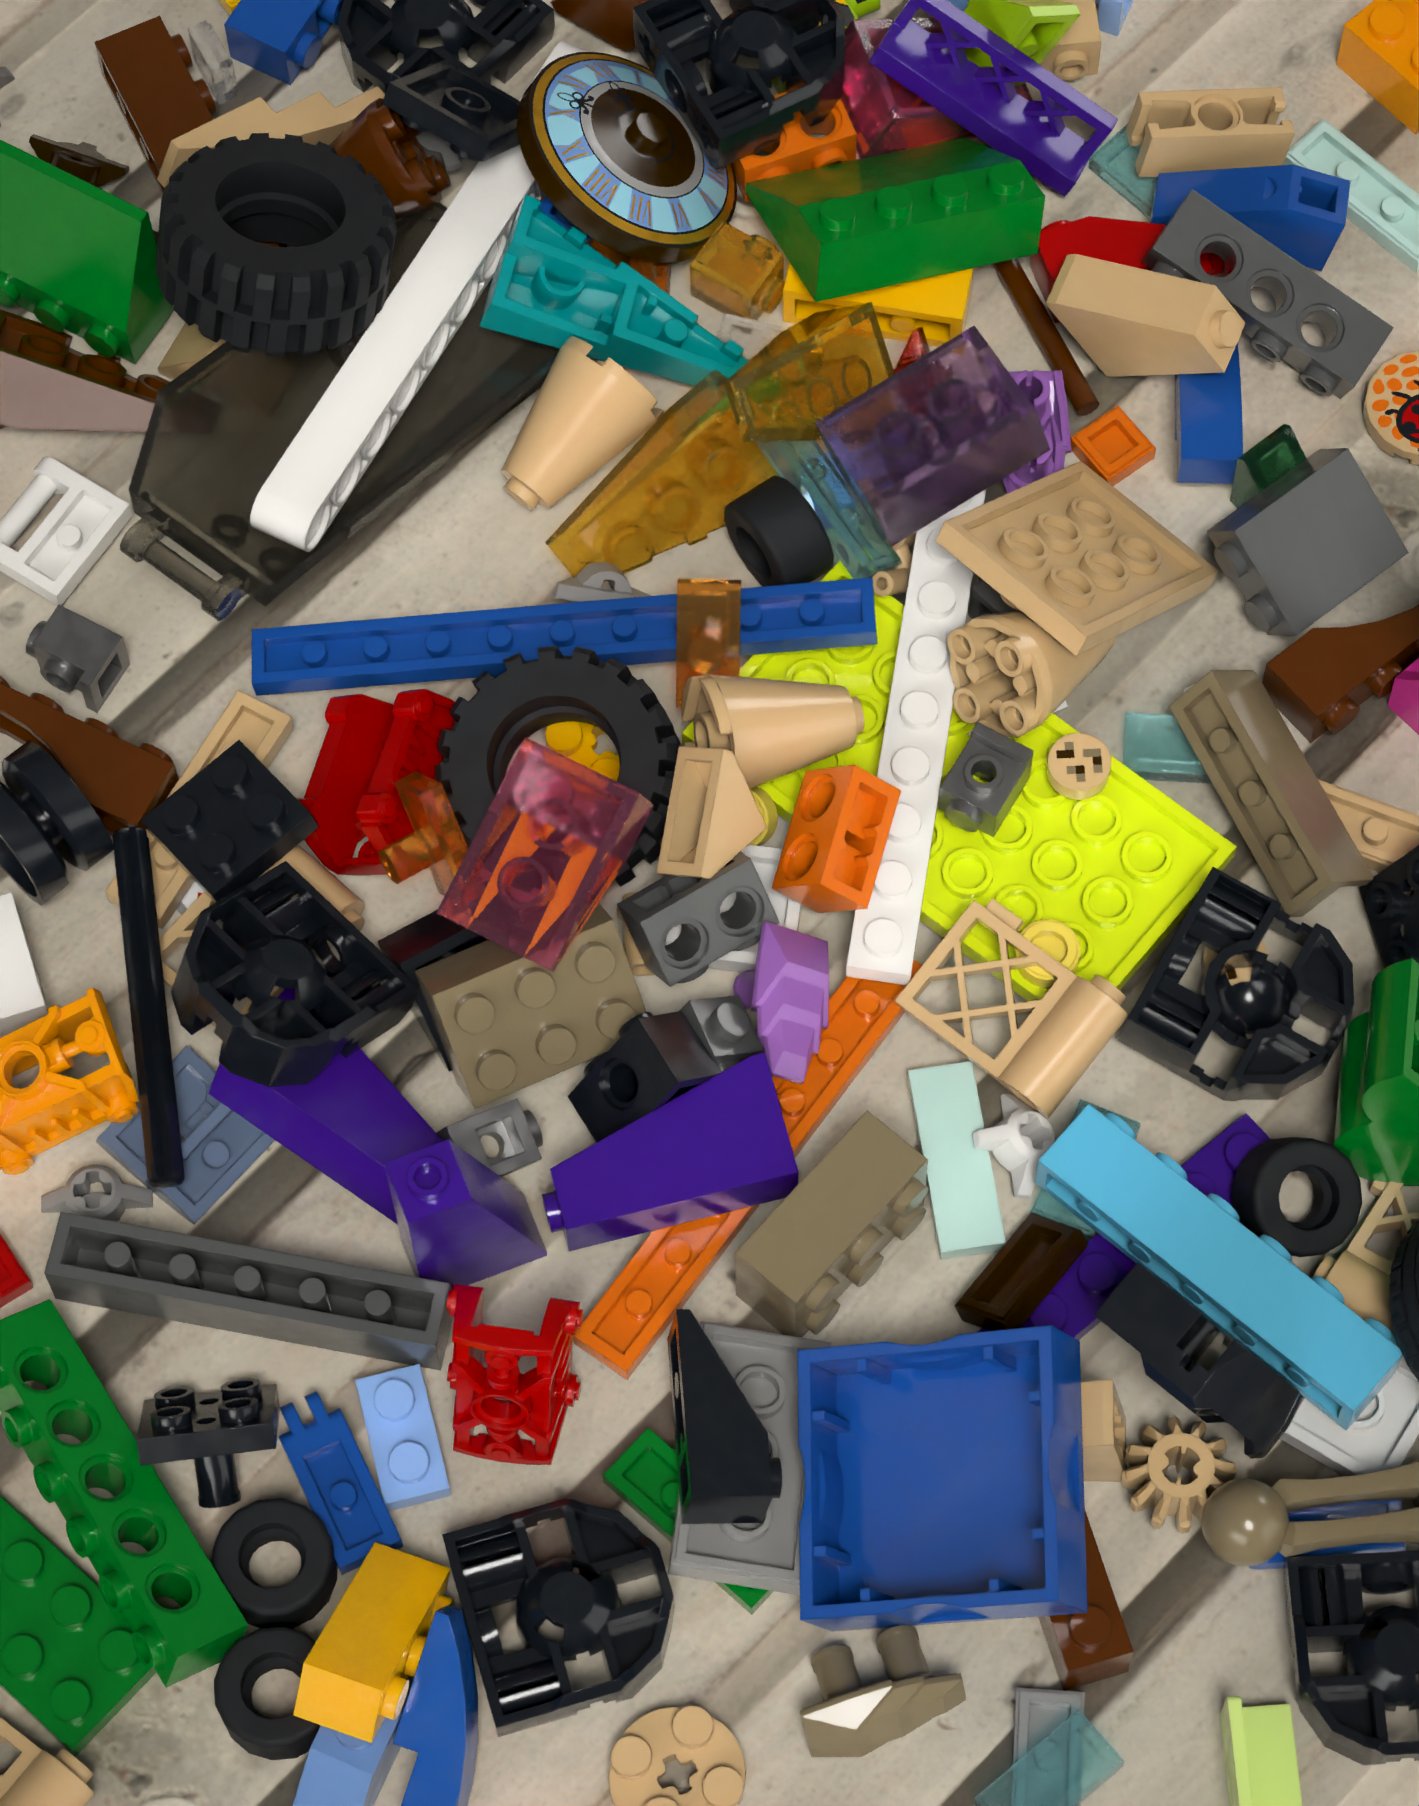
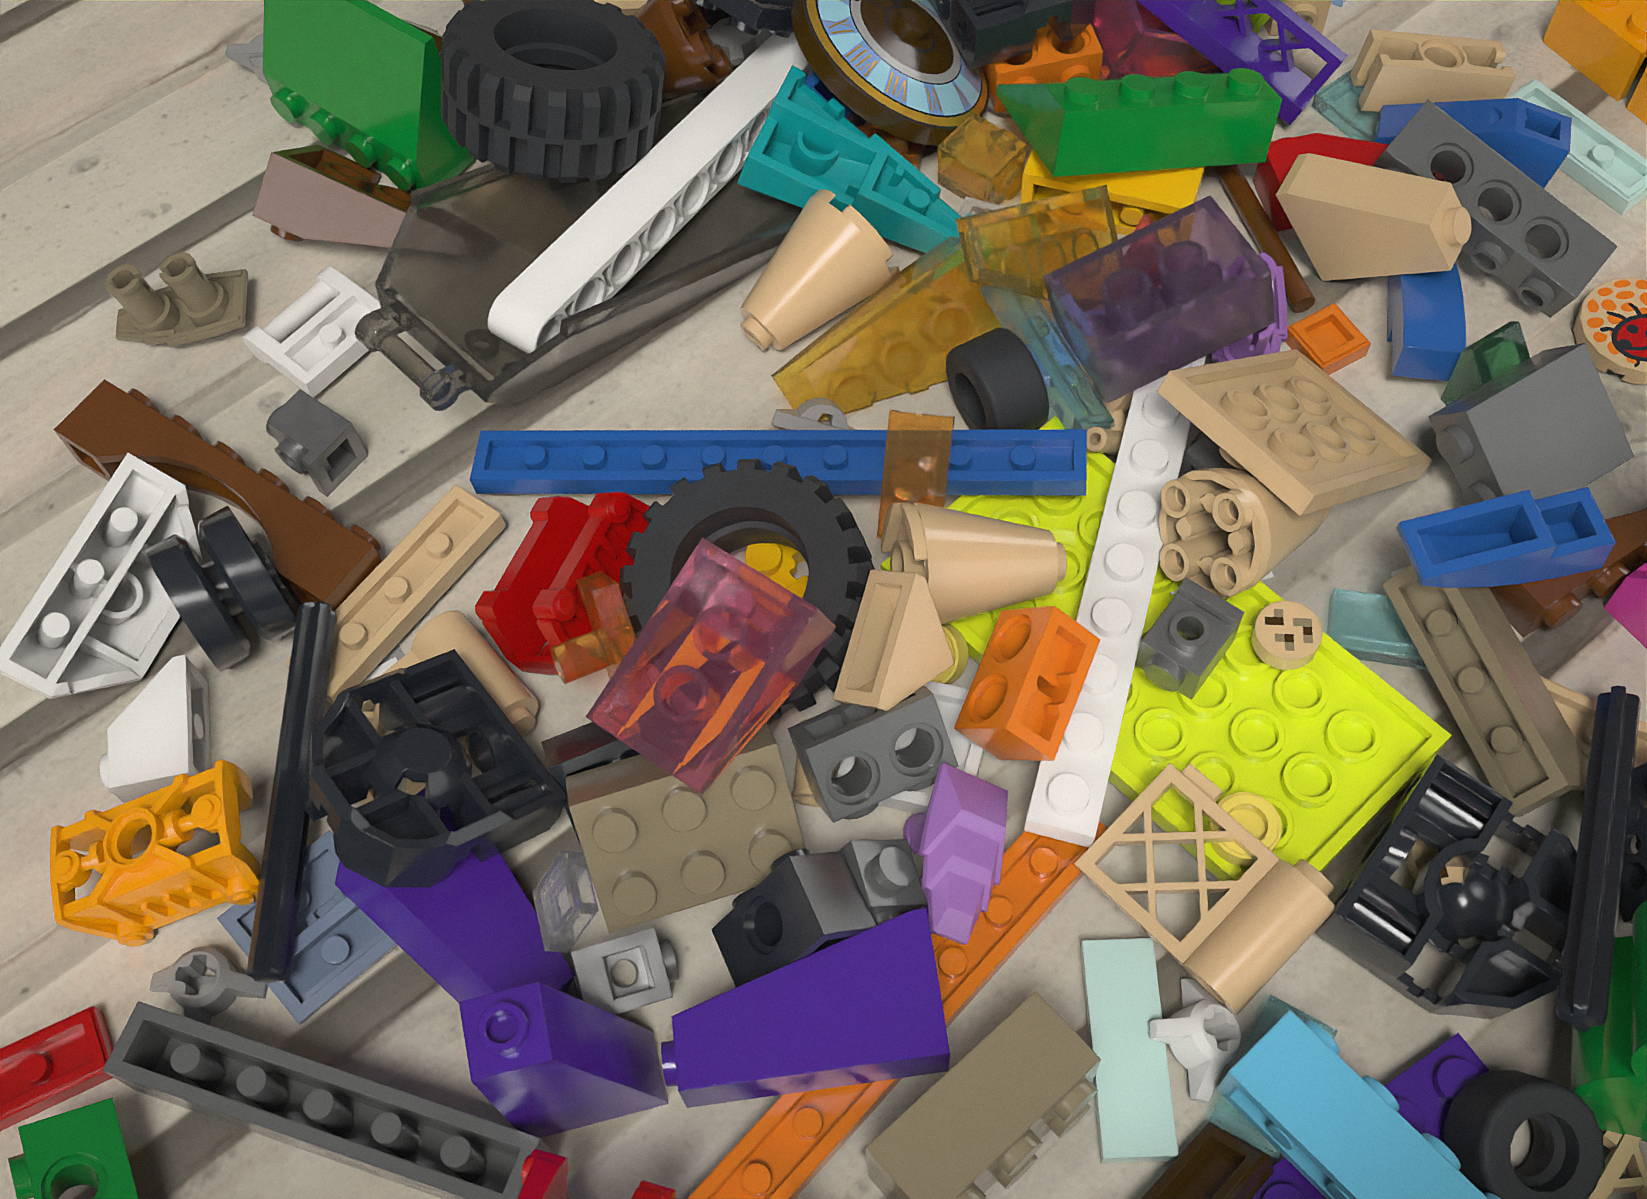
camera: 10 degrees right, 5 degrees down
(230, 822) = (412, 606): black plate -> none
(432, 1083) = (565, 901): none -> clear tile
(1275, 657) = (1508, 540): none -> blue slope
(1356, 939) = (1599, 863): none -> black axle

